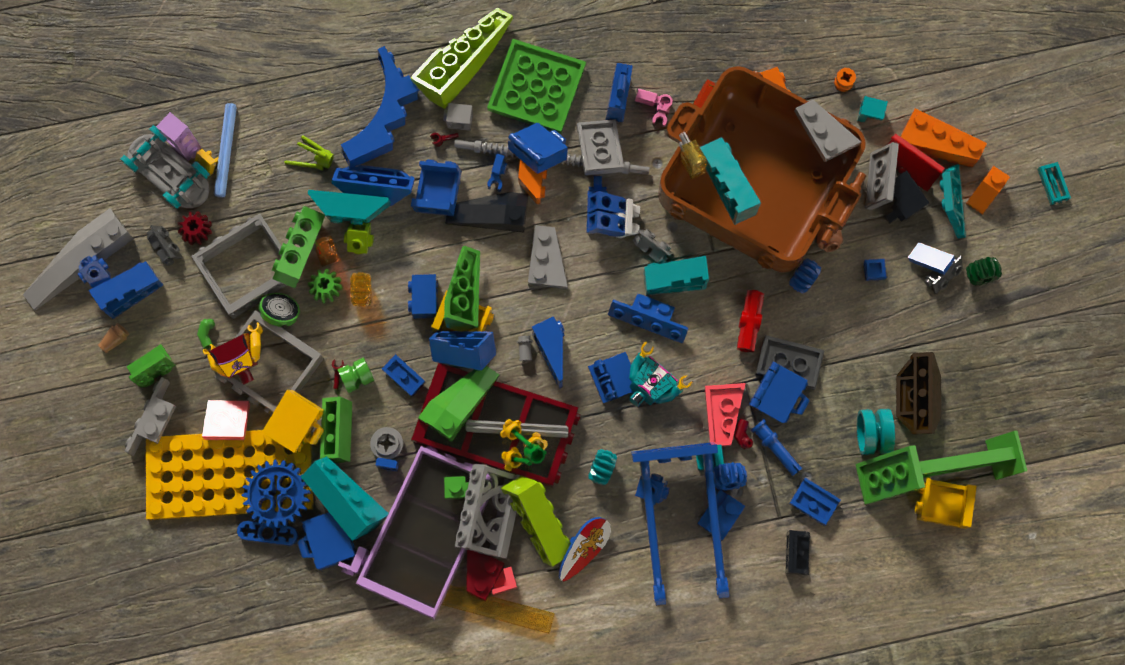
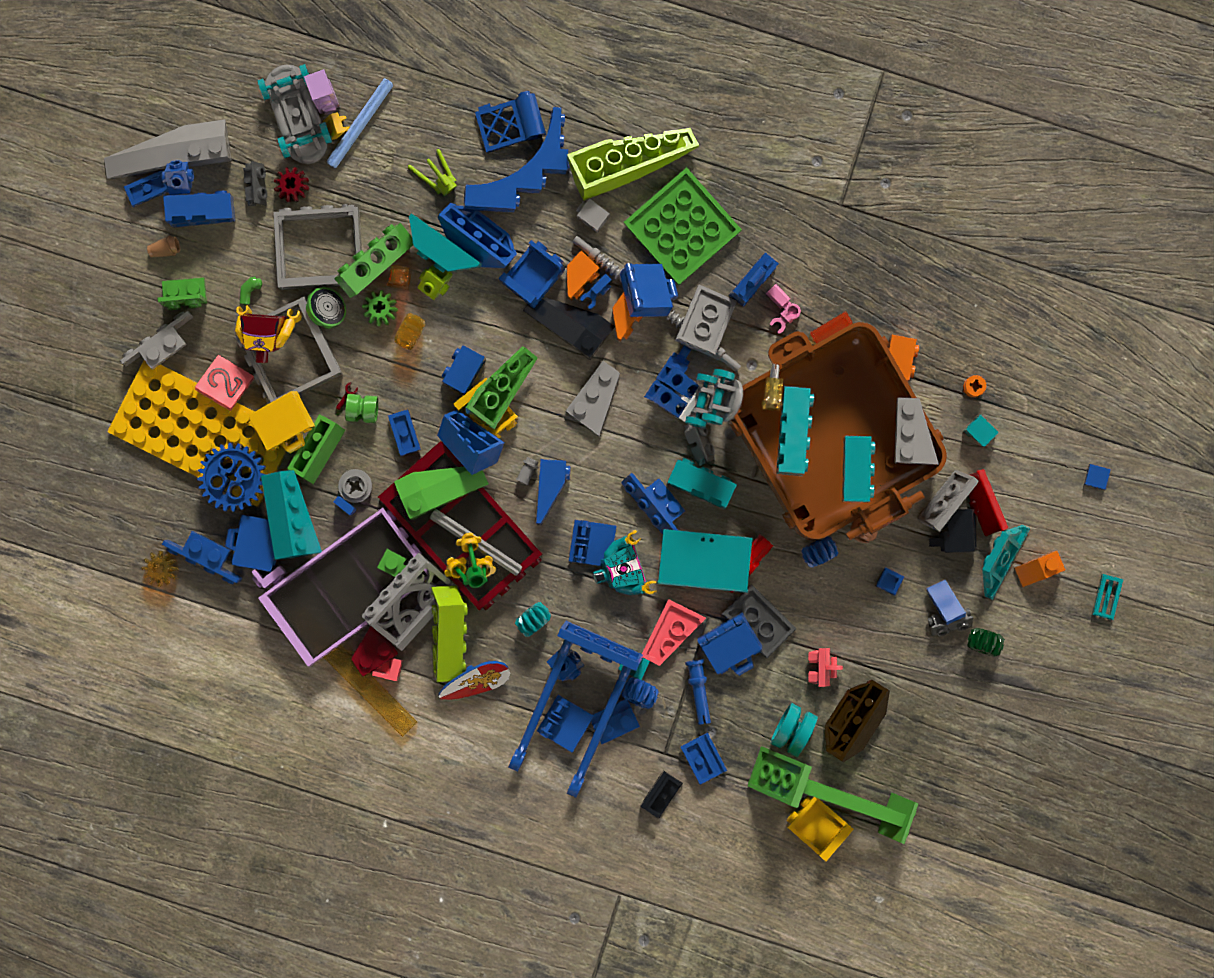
camera: 30 degrees right, 10 degrees up
(72, 298) = (146, 189): none -> blue plate
(251, 536) = (215, 520): blue beam -> none
(254, 618) = (159, 577): none -> clear yellow gear
(288, 572) = (206, 553): none -> blue bracket
(361, 70) = (527, 118): none -> blue piece
(442, 138) = (567, 227): dark red hand -> none
(474, 166) = (579, 274): none -> orange slope
(653, 196) = (723, 400): none -> piece
(681, 540) = (565, 723): none -> blue hinge
(712, 340) = (700, 562): none -> teal container
(741, 435) = (674, 662): dark red arm -> none
(799, 181) = (857, 469): none -> teal brick
(860, 361) = (822, 676): none -> coral hips
(942, 140) = (1024, 496): orange wedge -> none
(984, 95) = (1097, 476): none -> blue tile

